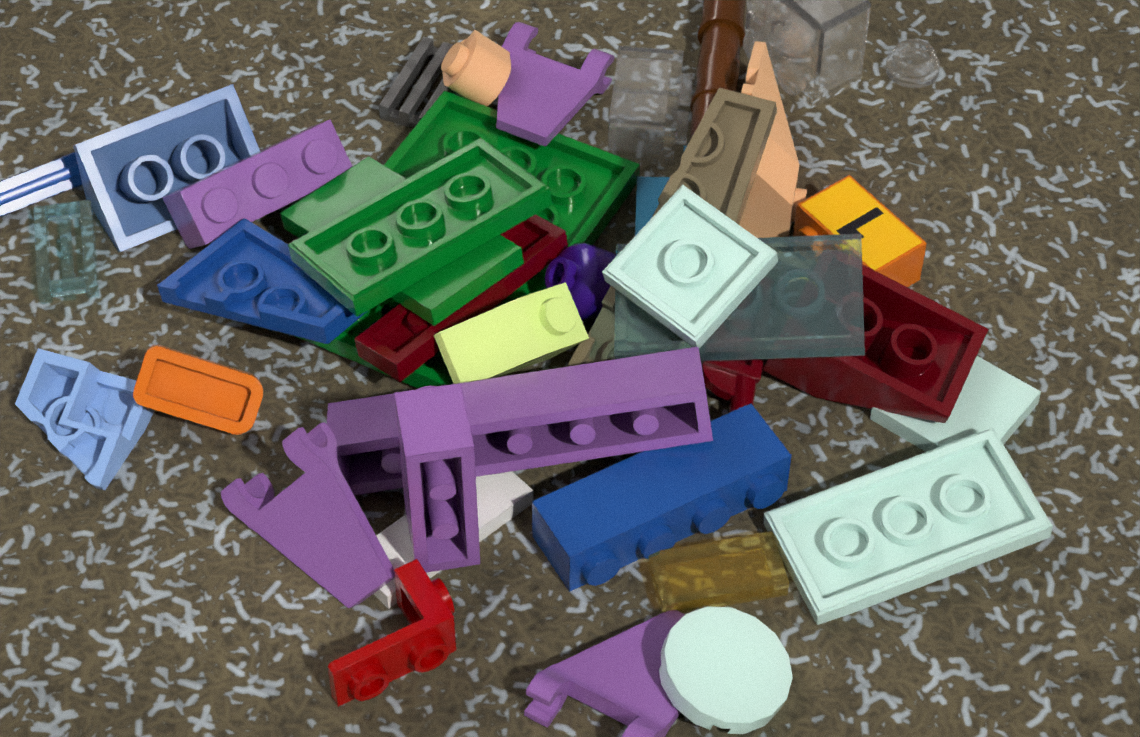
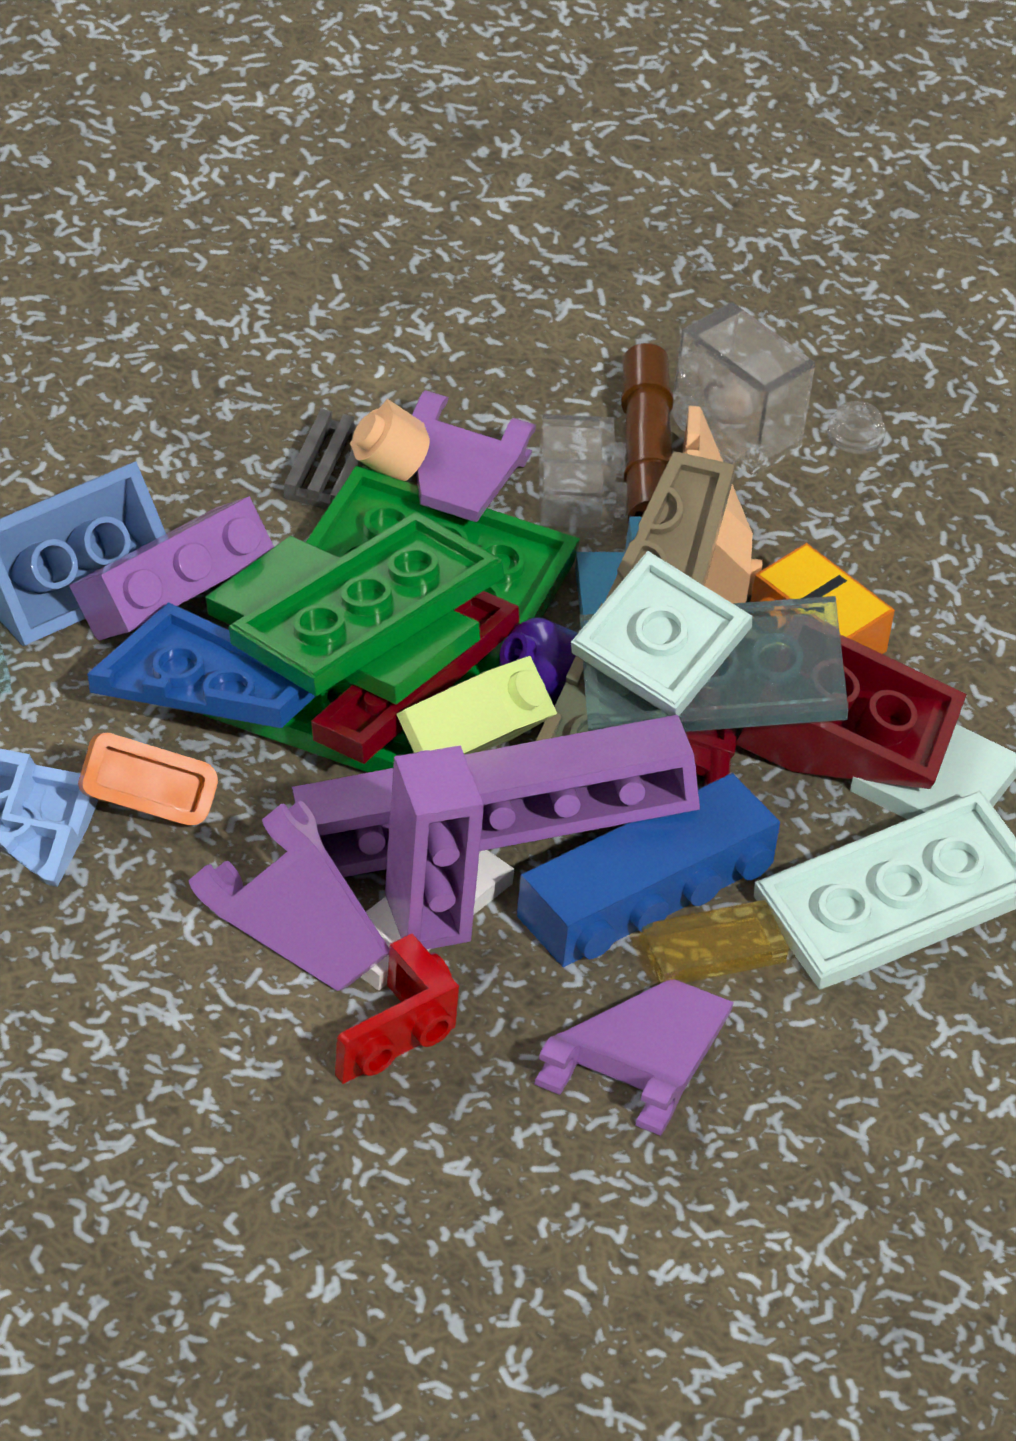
camera: 10 degrees left, 5 degrees down
(725, 669) = (735, 1030): light aqua tile -> none

